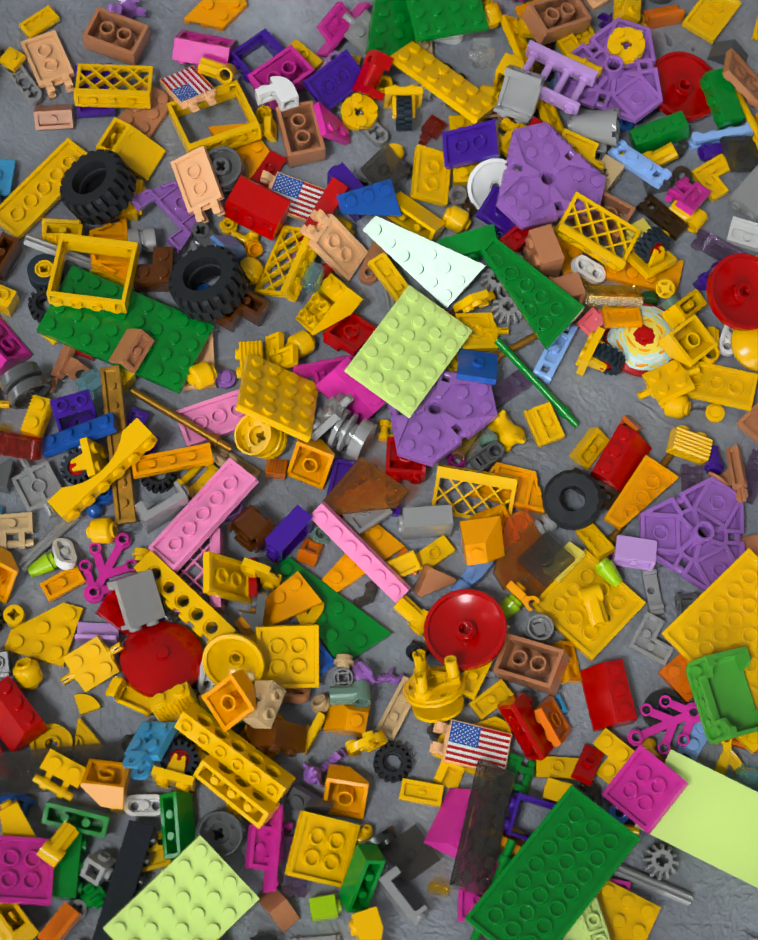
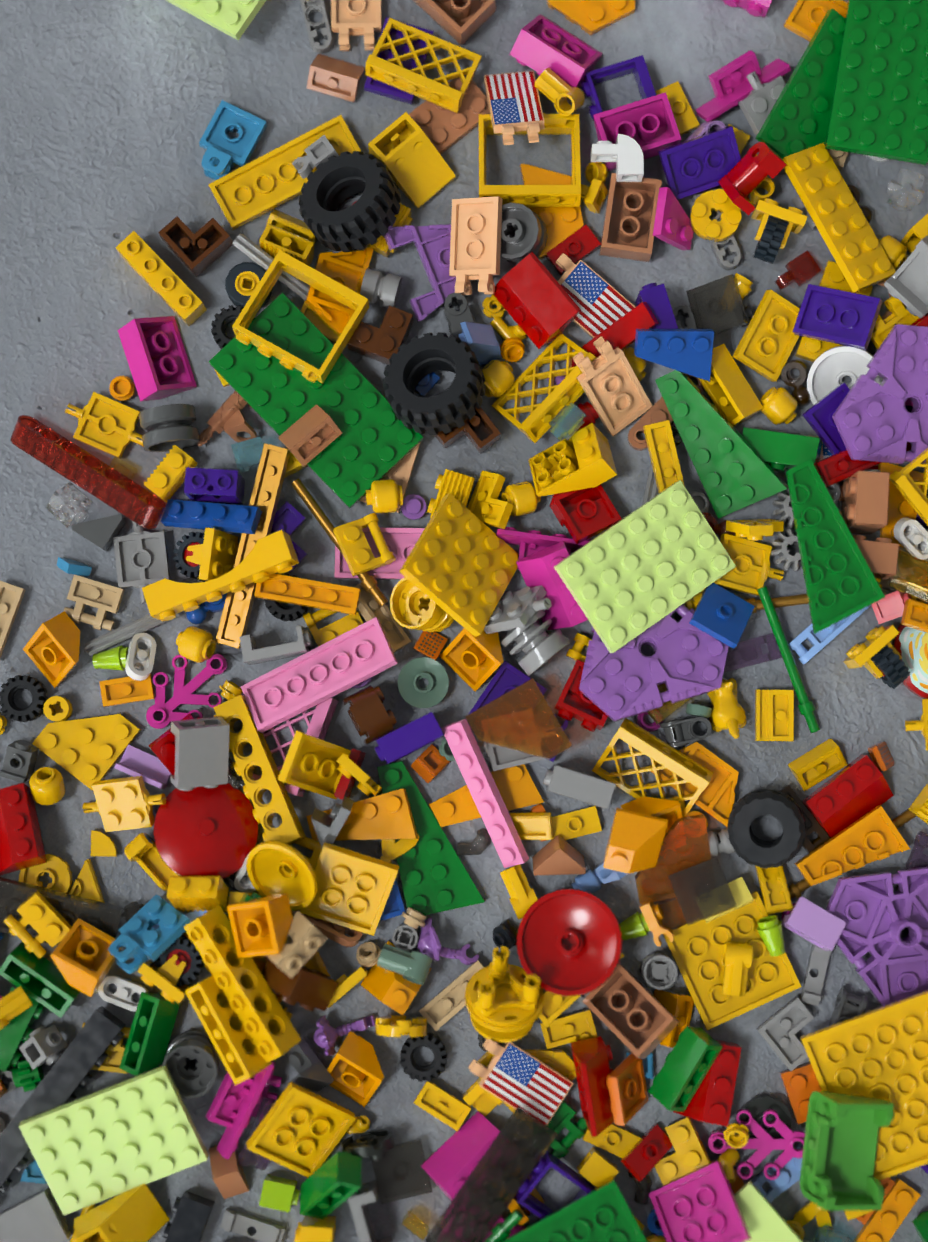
camera: 30 degrees right, 15 degrees up
(59, 168) = (316, 153): none -> light grey plate
(196, 417) = (356, 547): none -> yellow plate
(281, 486) = (415, 671): none -> sand green dish
(588, 690) = (685, 1069): none -> green brick
(650, 727) = (739, 1140): none -> yellow plate

